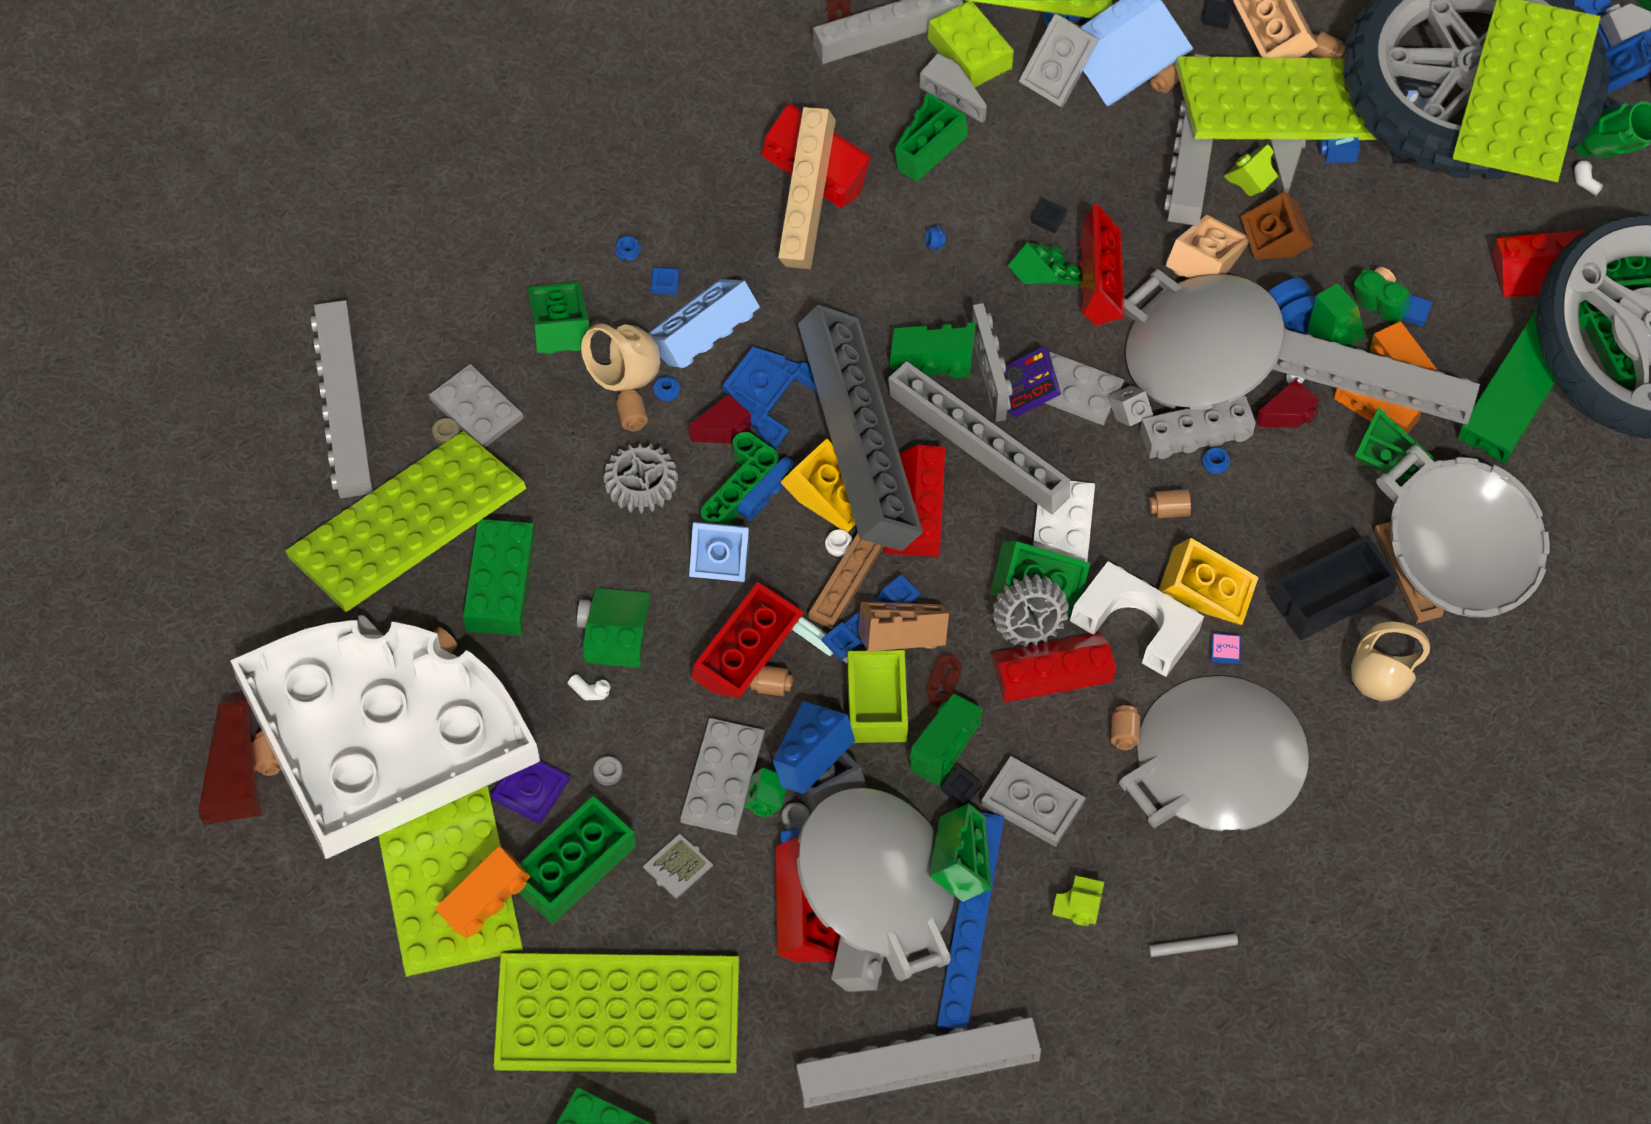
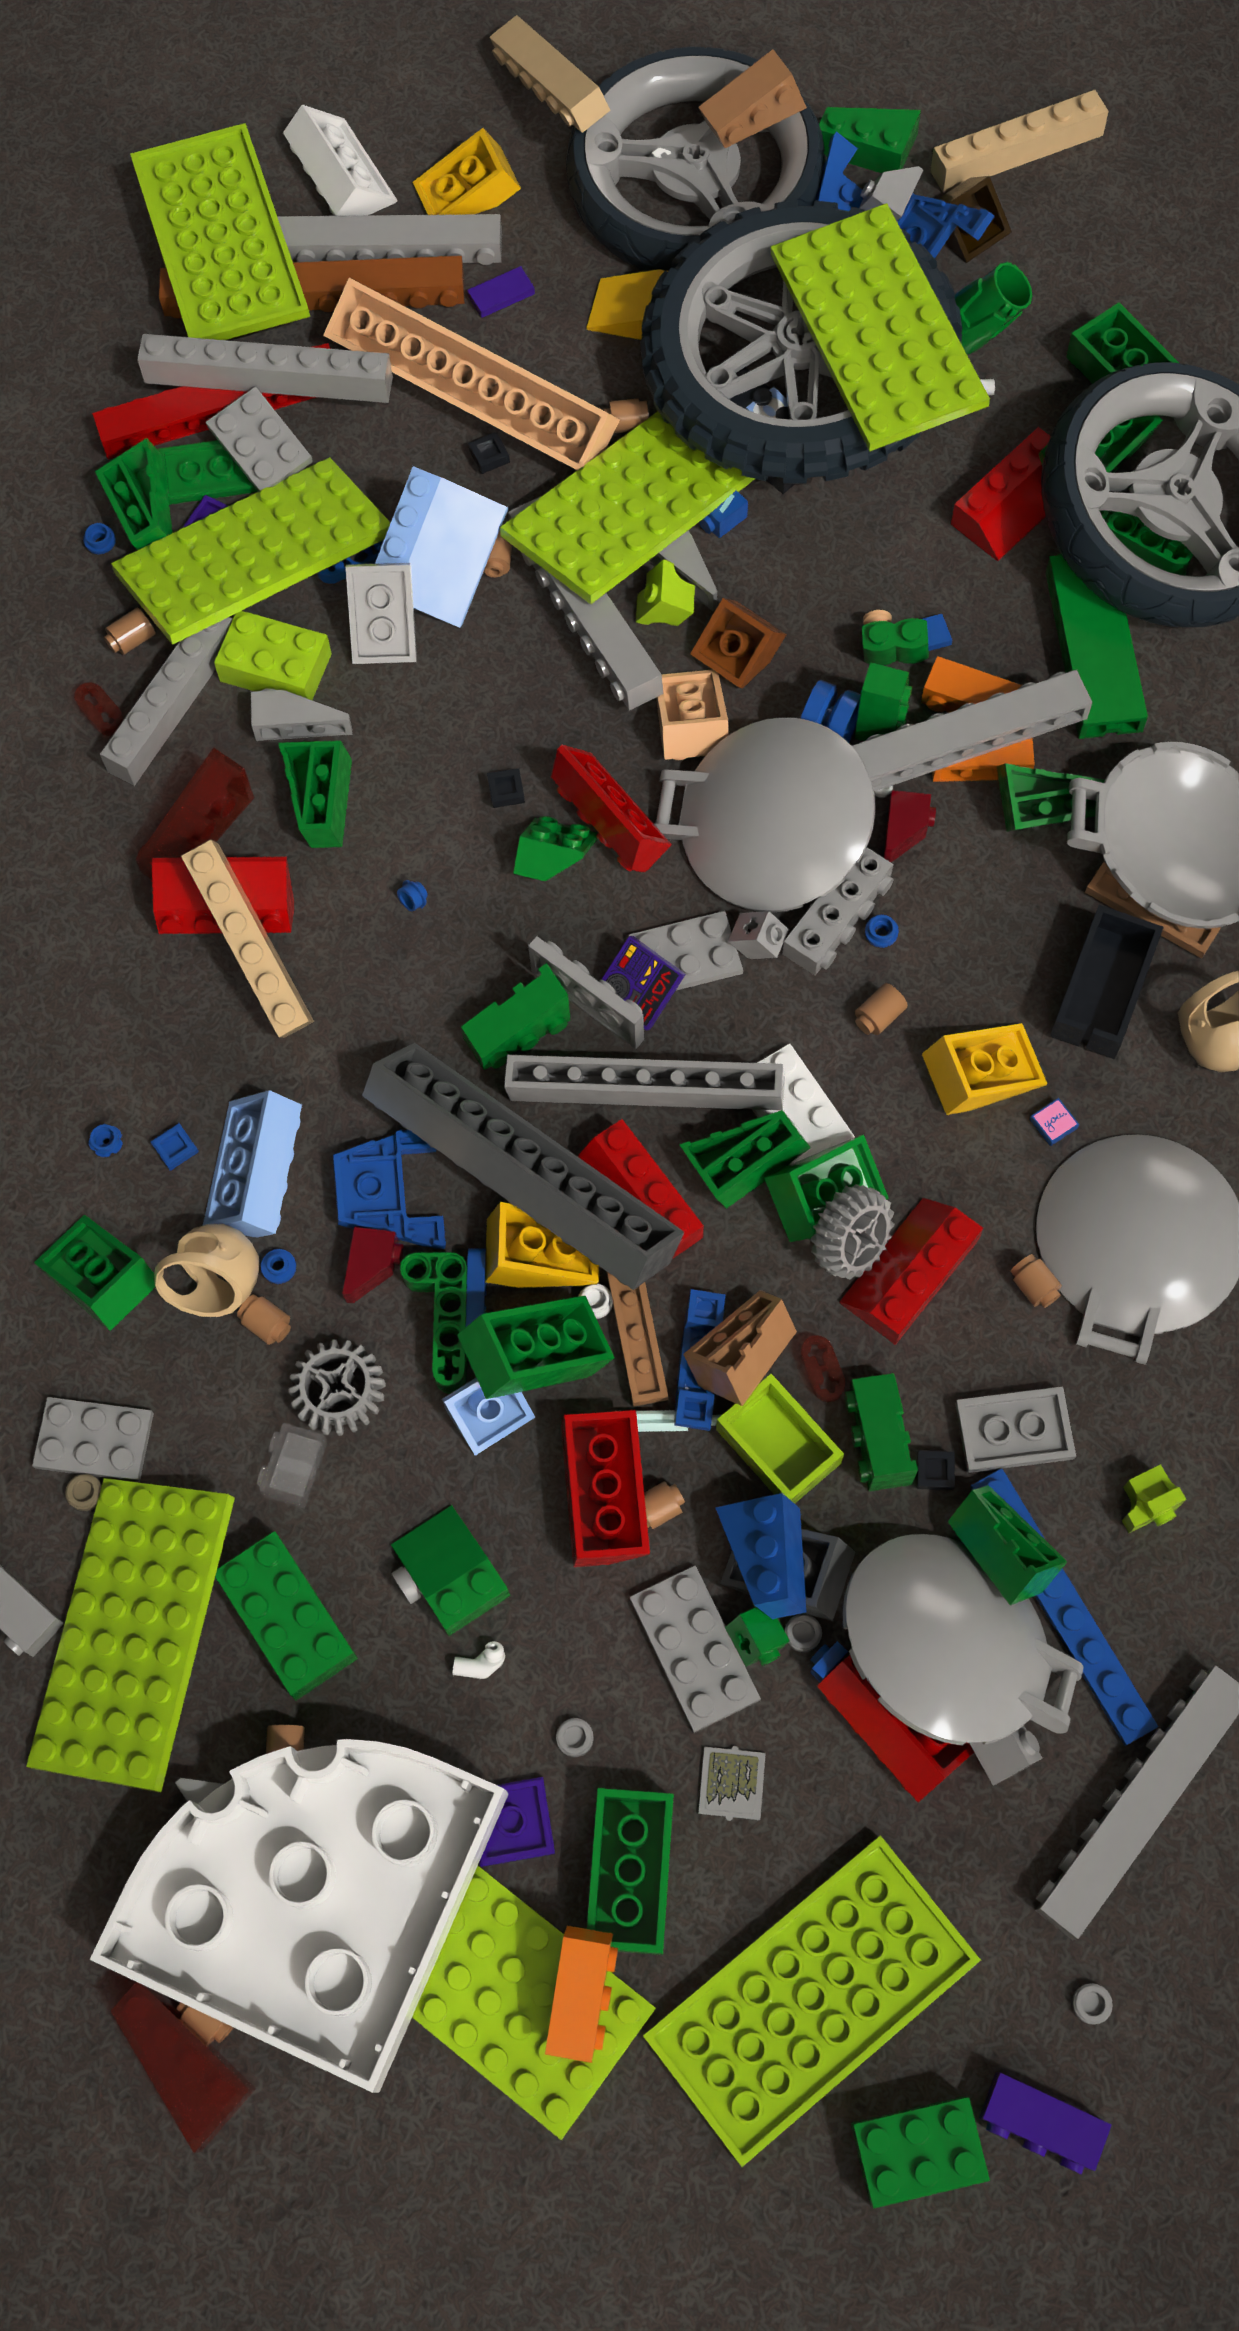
camera: 35 degrees left, 10 degrees up
(576, 501) = (292, 1465): none -> clear brick
(774, 530) = (535, 1346): none -> green brick
(852, 100) = (201, 812): none -> clear red wedge
(995, 519) = (740, 1158): none -> green wedge
(1118, 589) = (990, 1132): white arch -> none

